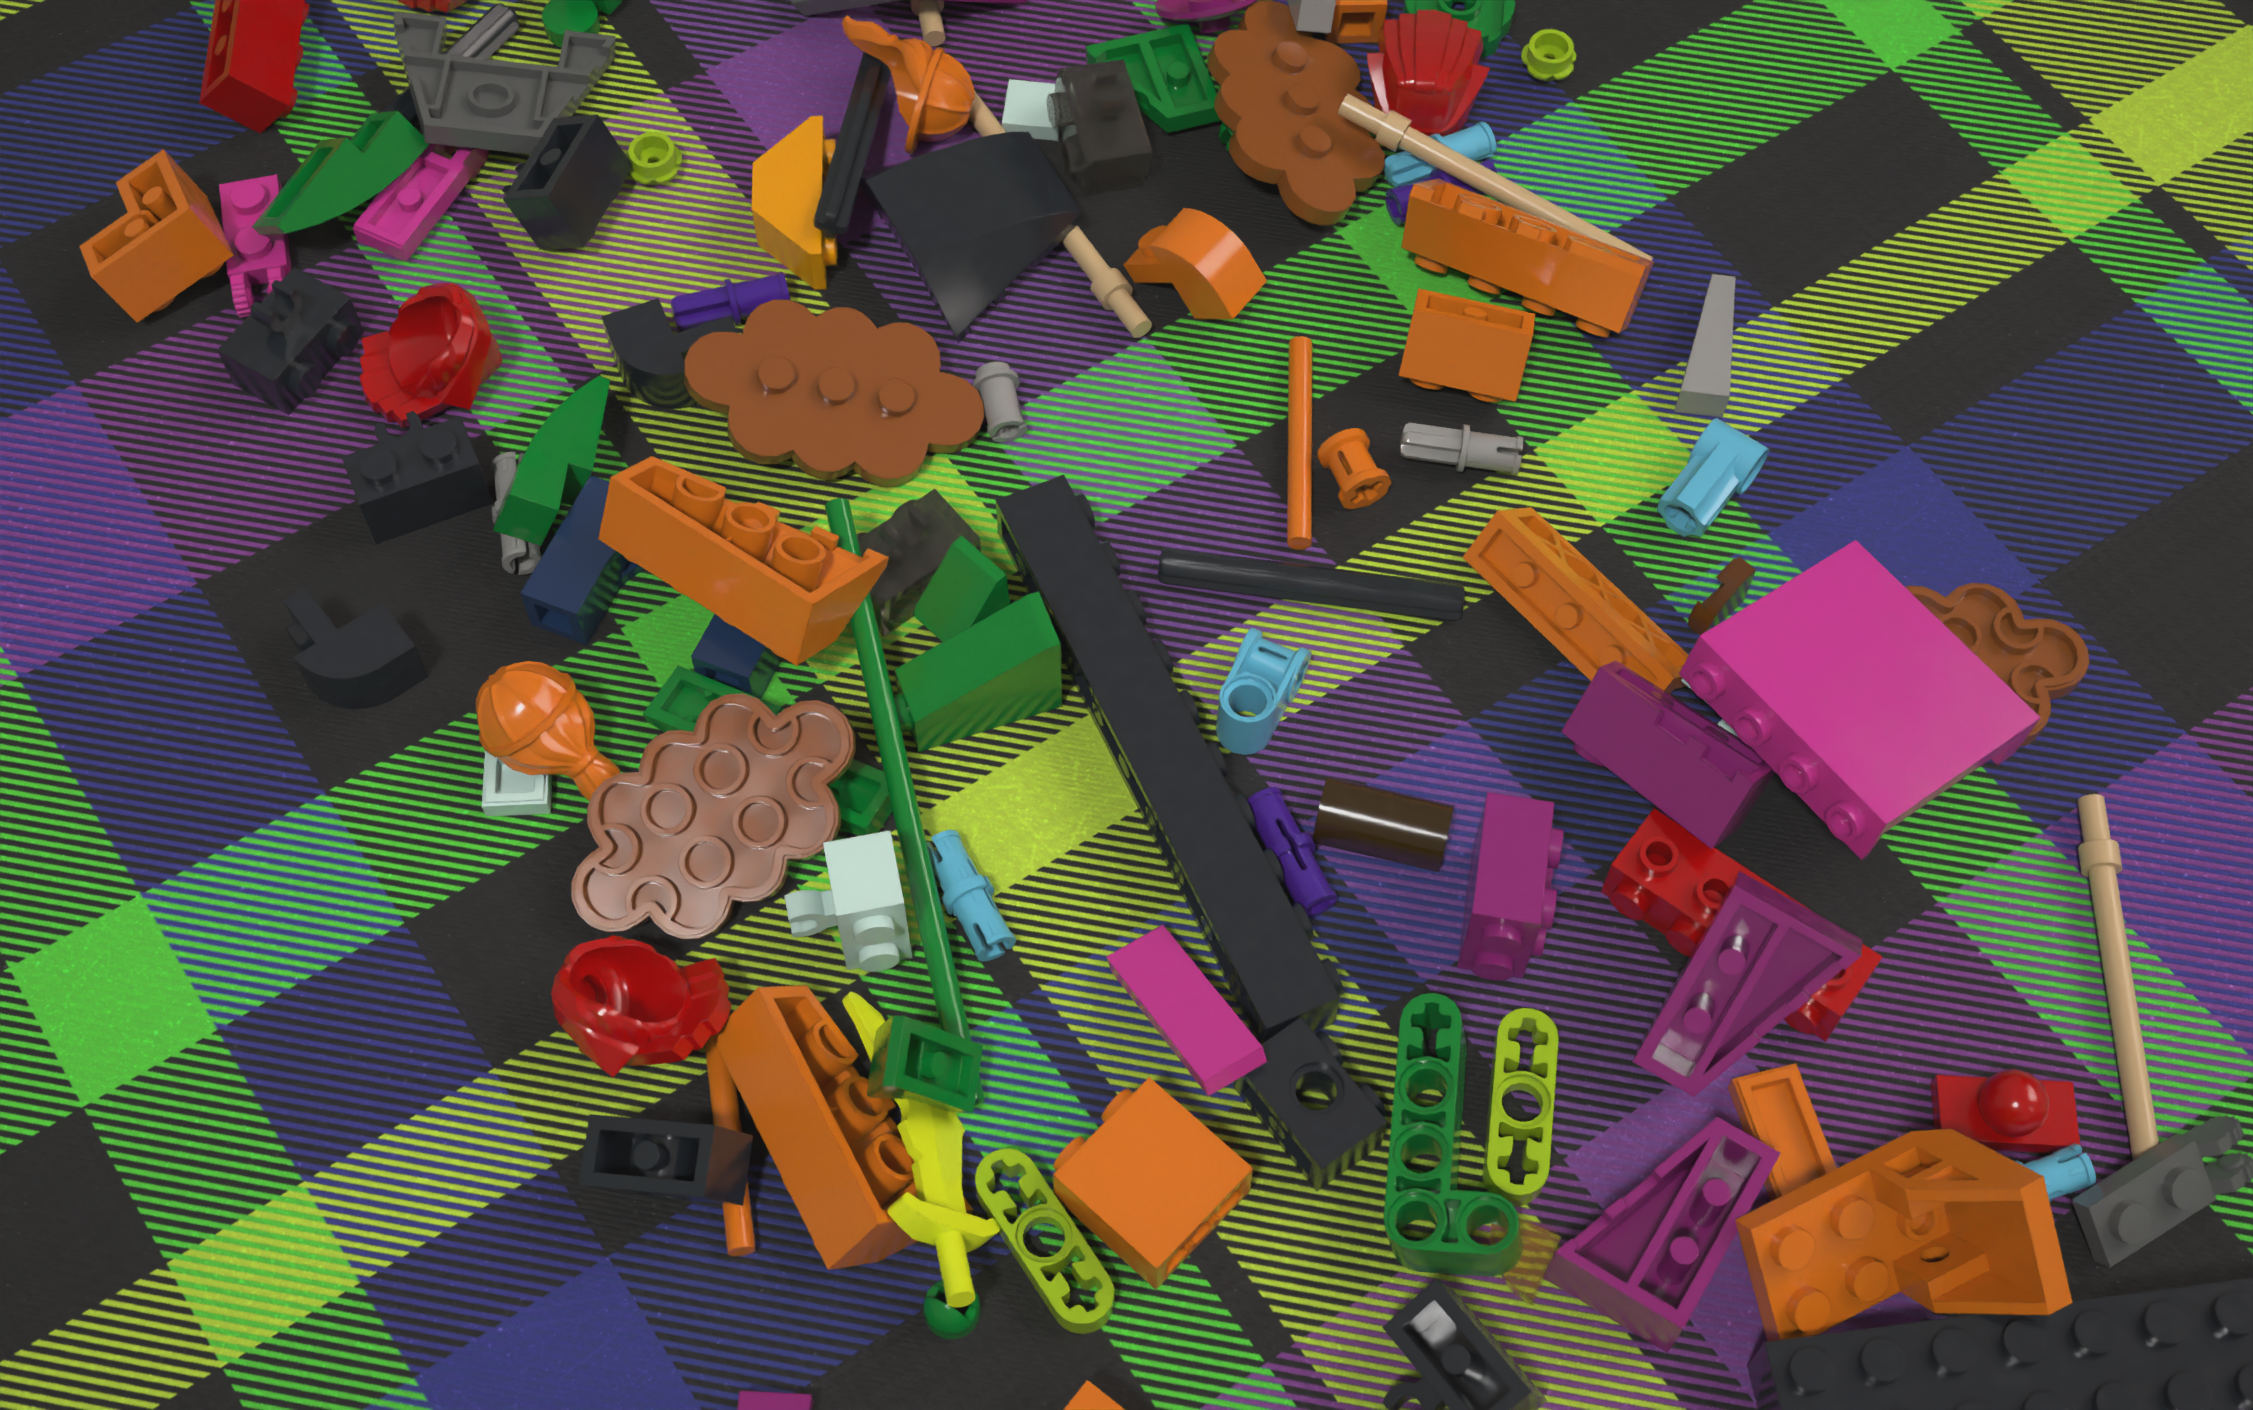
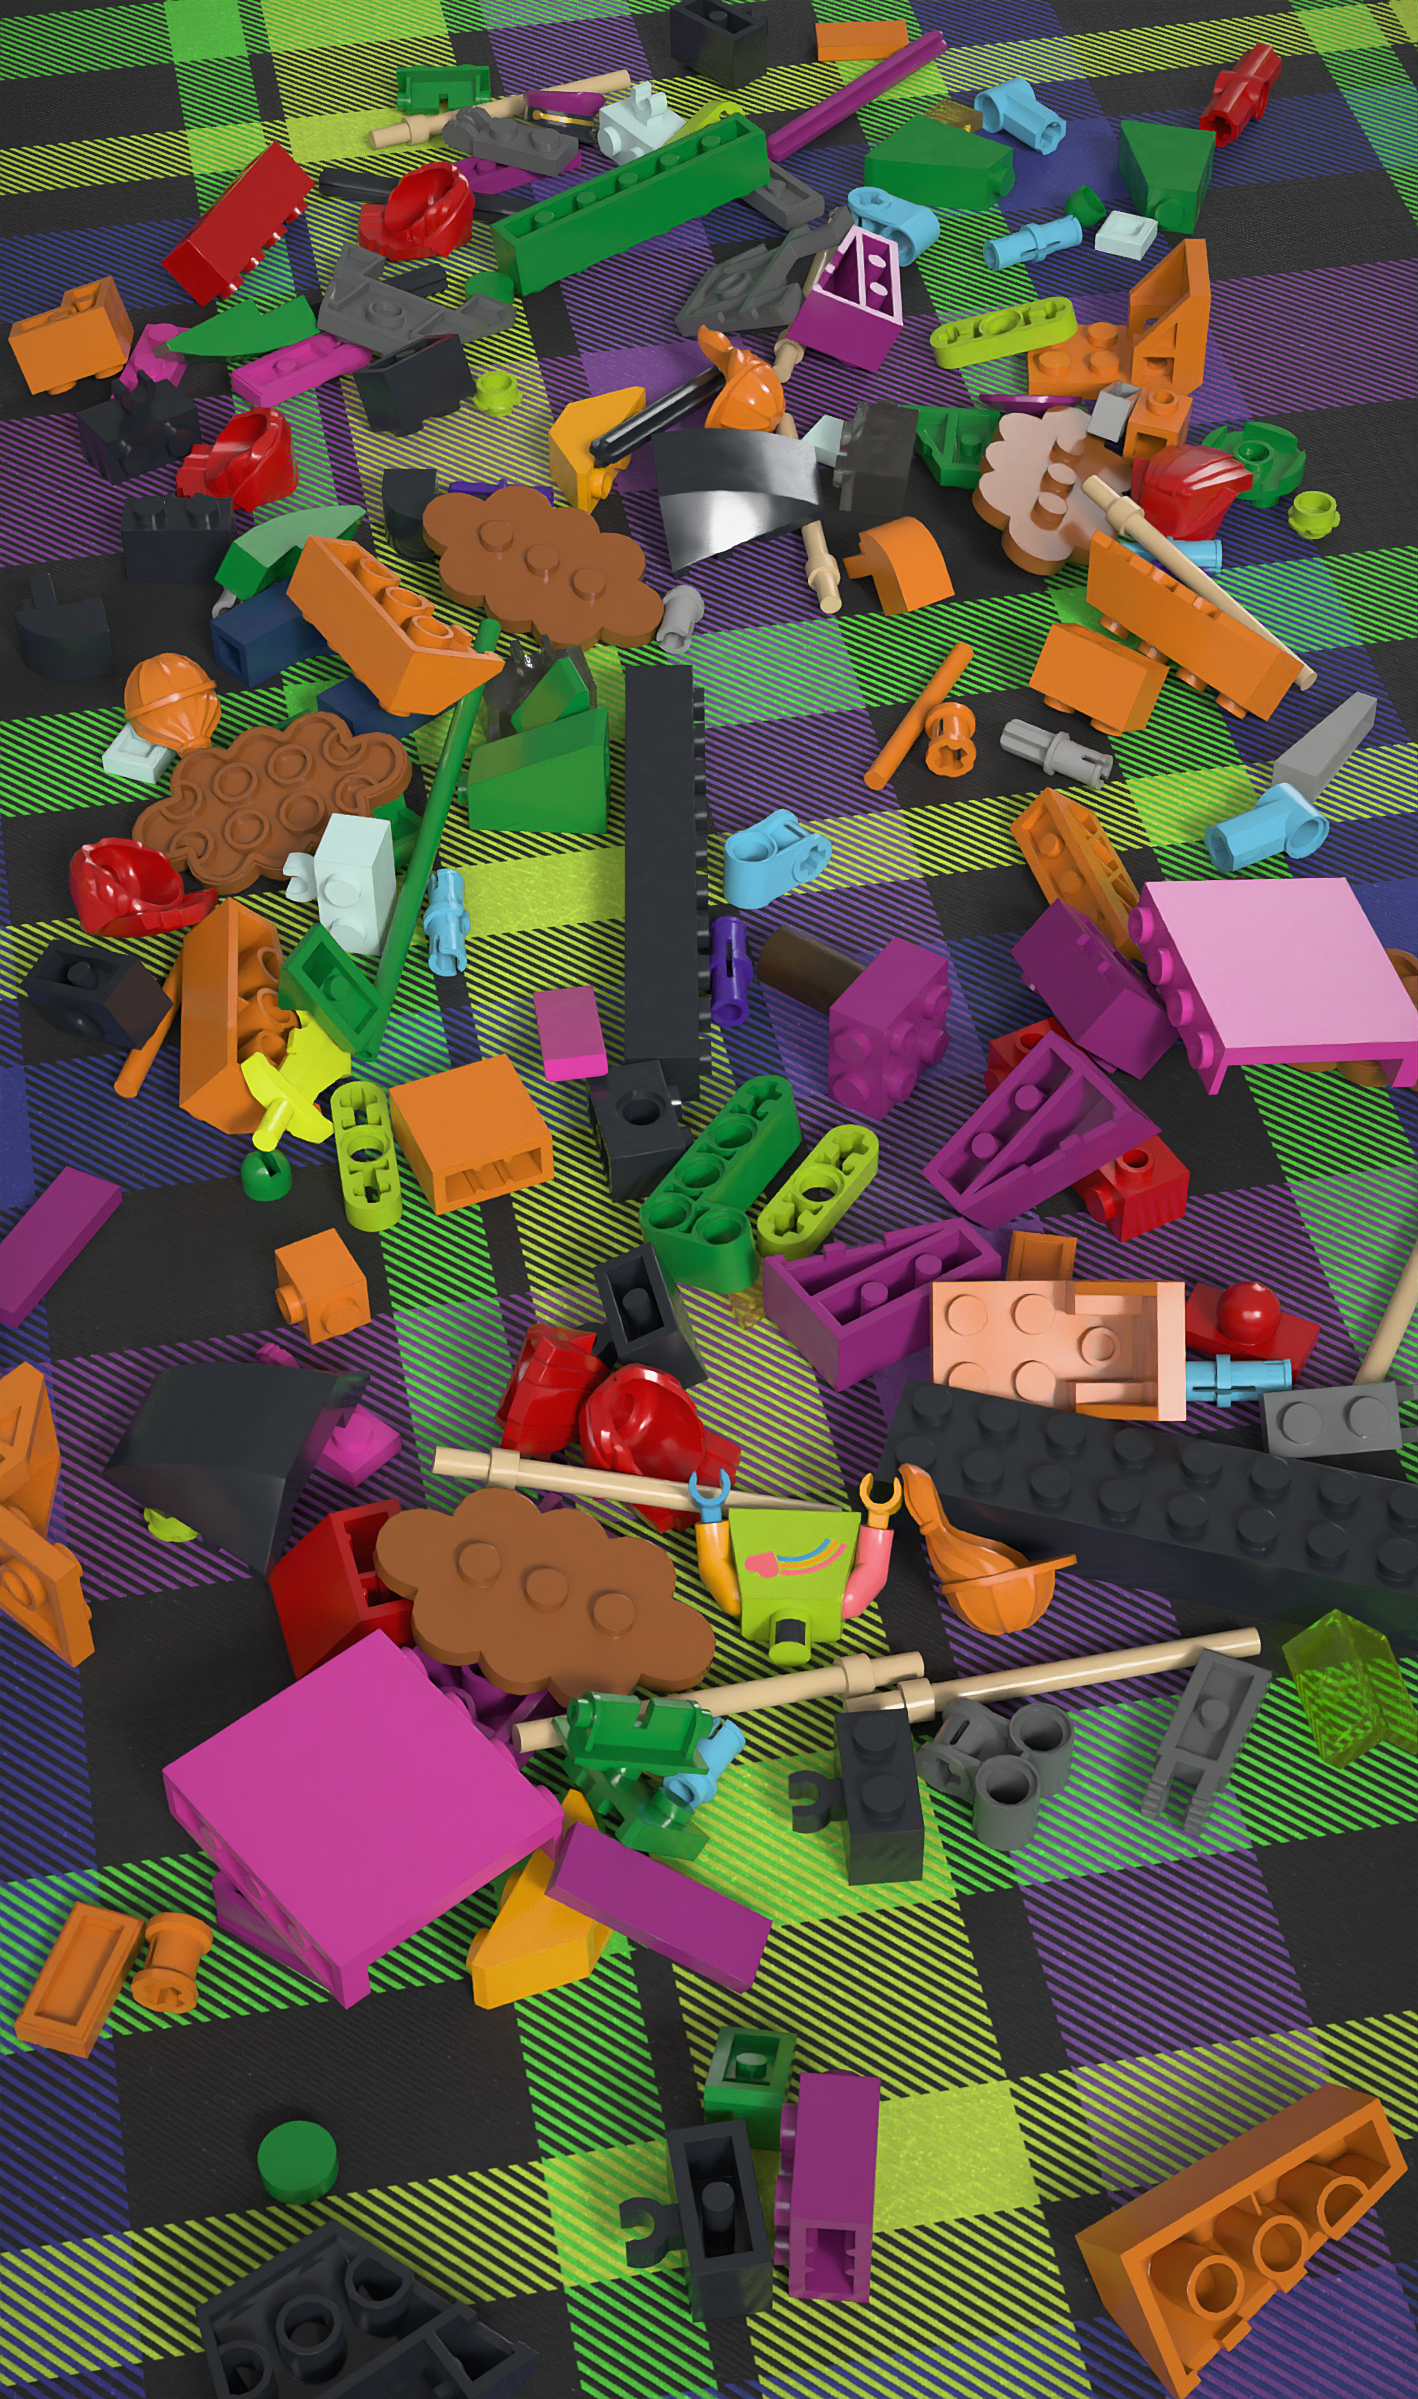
camera: 25 degrees right, 15 degrees down
(1311, 583) = (867, 808): black axle -> none

